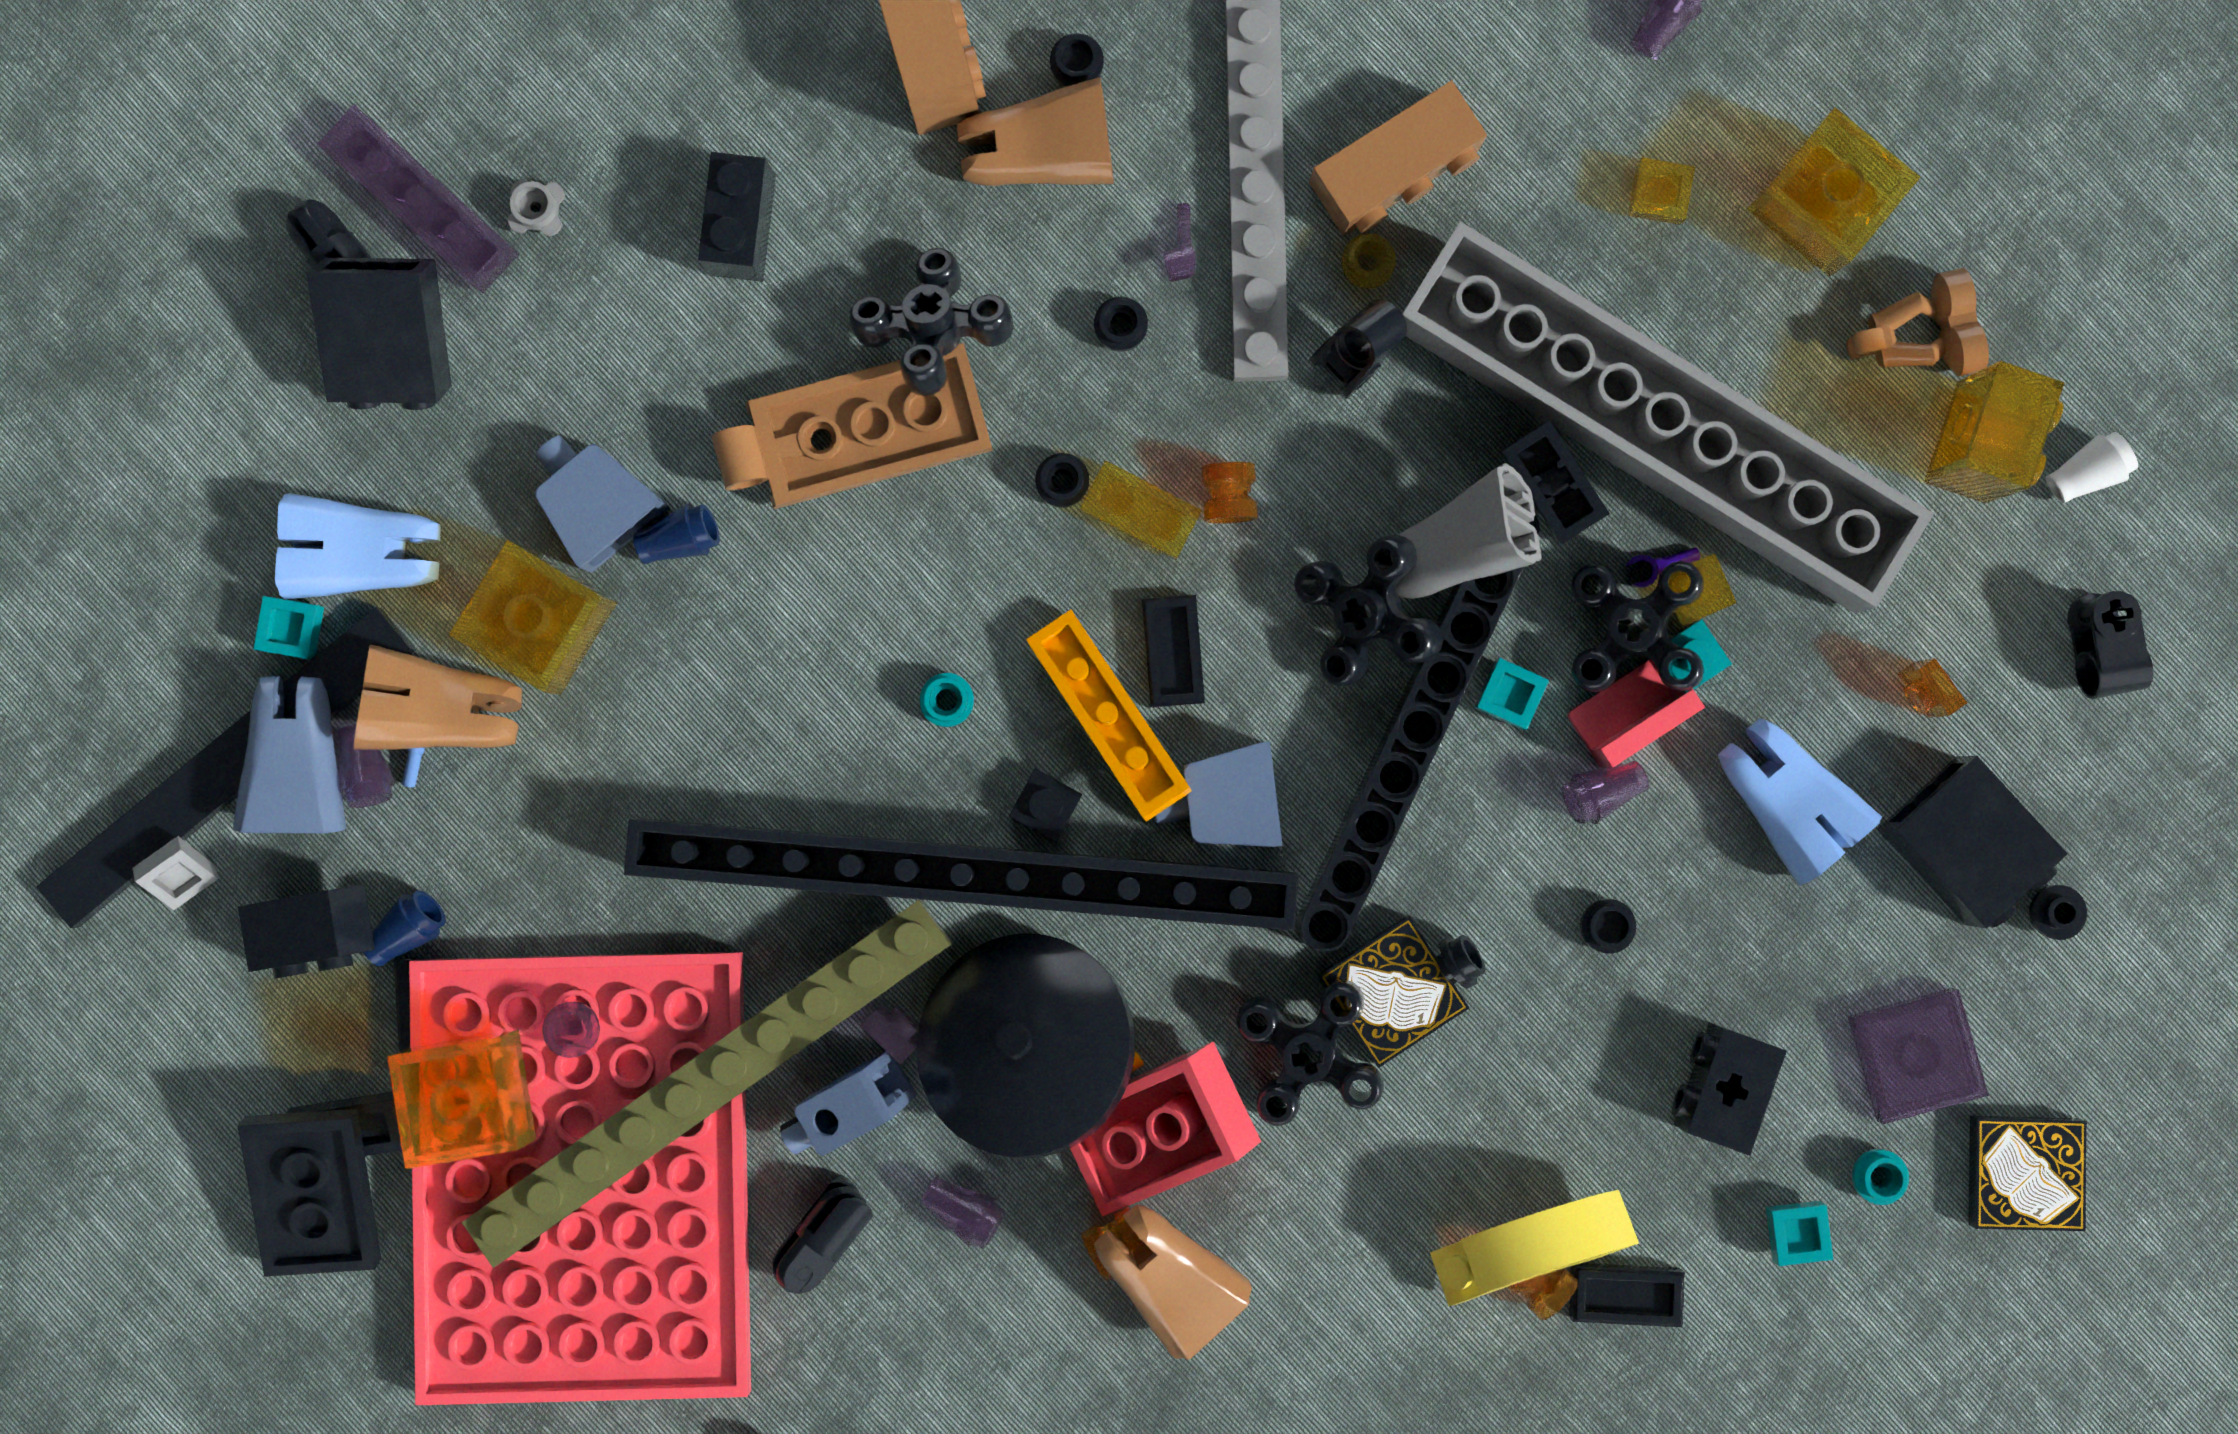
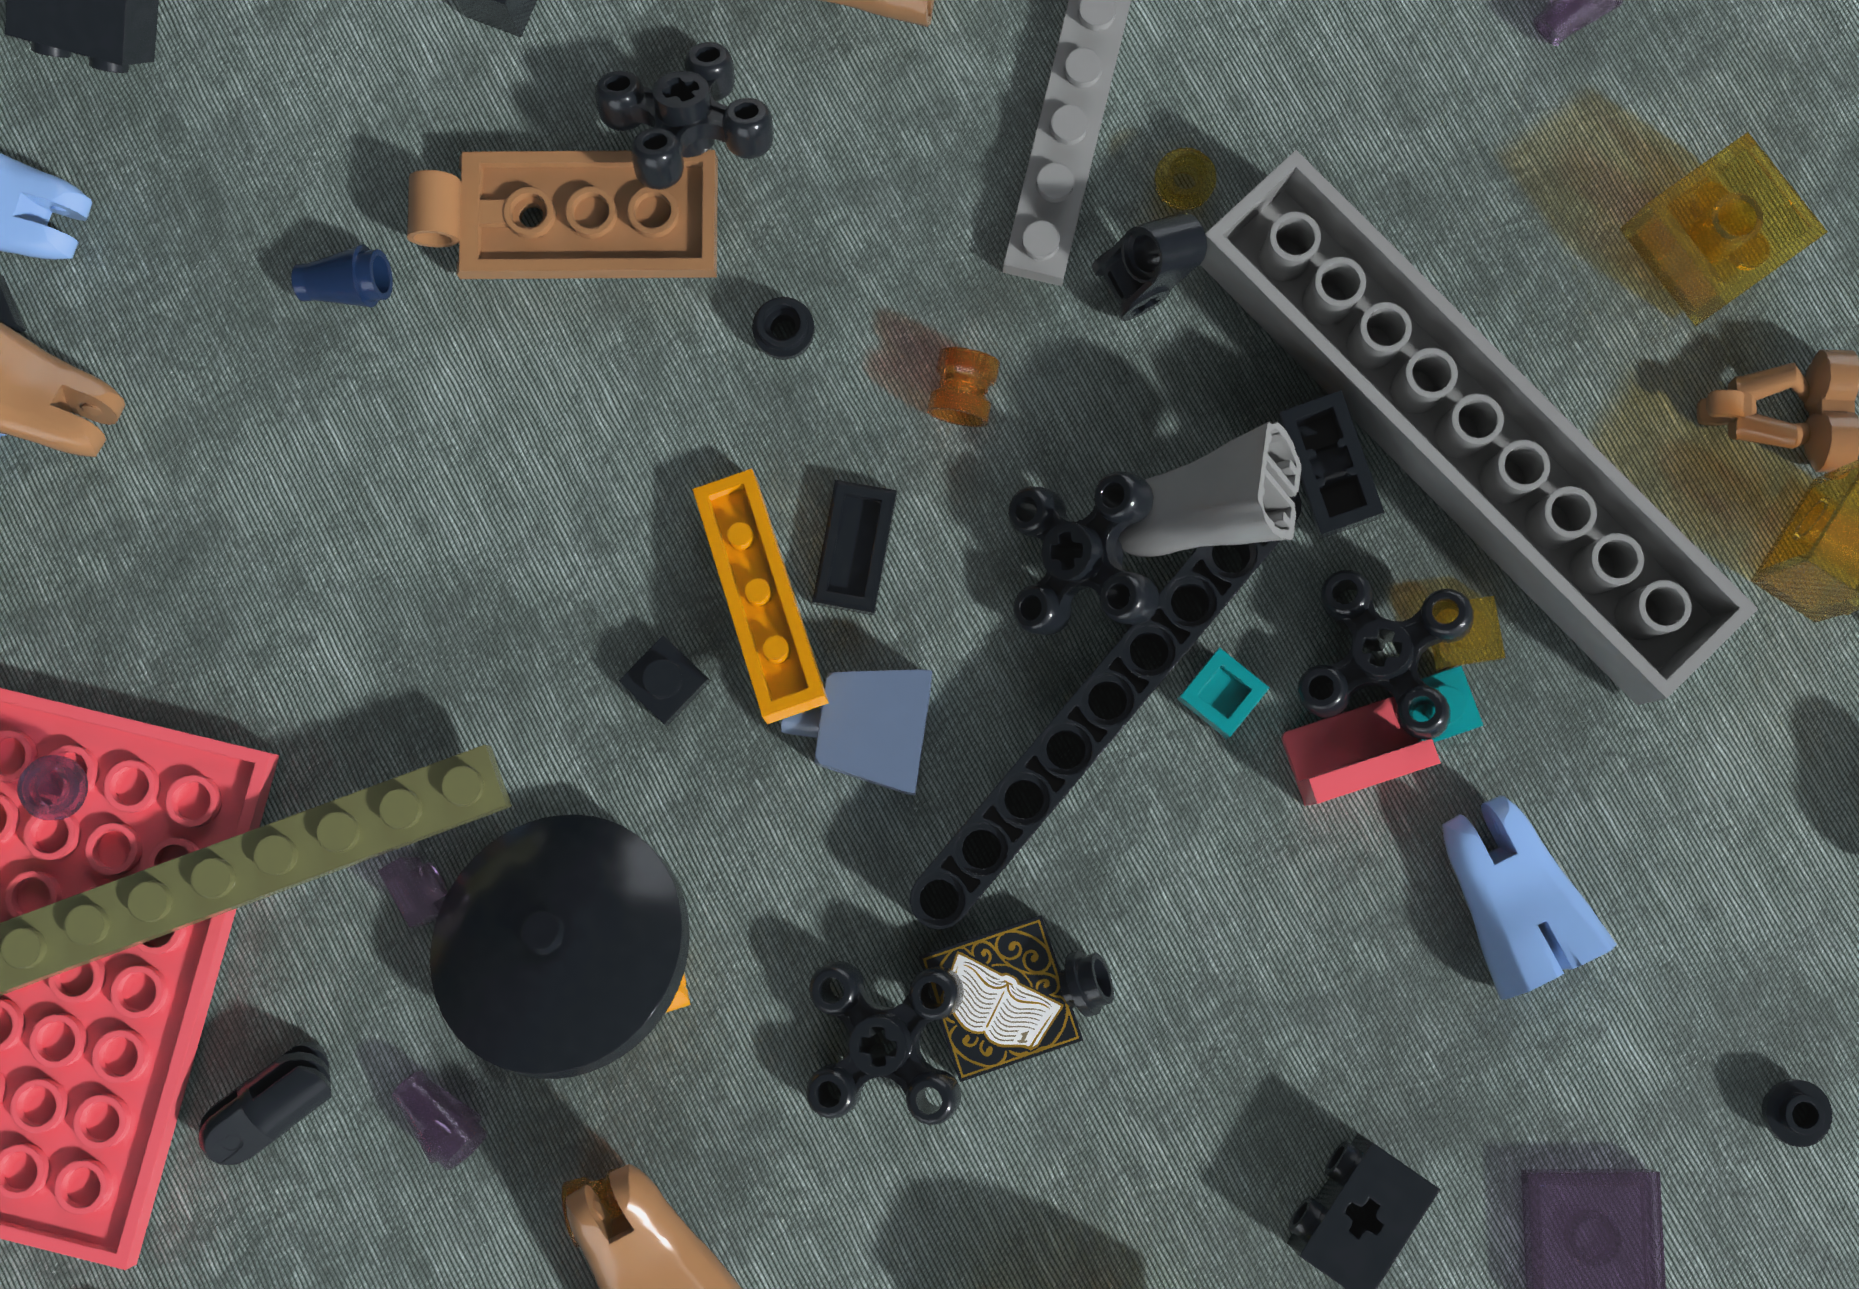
camera: 20 degrees right, 5 degrees down
(533, 618) = (154, 322): clear yellow brick -> none
(593, 501) = (261, 218): sand blue torso -> none
(849, 1106) = (340, 960): sand blue torso -> none
(931, 691) = (574, 521): teal plate -> none
(961, 873) = (543, 728): black brick -> none
(1116, 308) = (894, 160): black plate -> none
(1140, 510) = (860, 382): clear yellow plate -> none
(1166, 1131) = (694, 1088): coral slope -> none
(1181, 260) = (979, 126): clear purple hand -> none
(1398, 160) = (1246, 76): medium nougat brick -> none
(1600, 792) = (1298, 831): clear purple cone -> none
(1608, 926) = (1267, 988): black plate -> none
(1657, 565) = (1423, 592): dark purple hand -> none
(1661, 191) = (1529, 184): clear yellow plate -> none
(1930, 689) = (1707, 813): clear orange plate -> none
(1973, 842) = (1716, 1005): black brick -> none

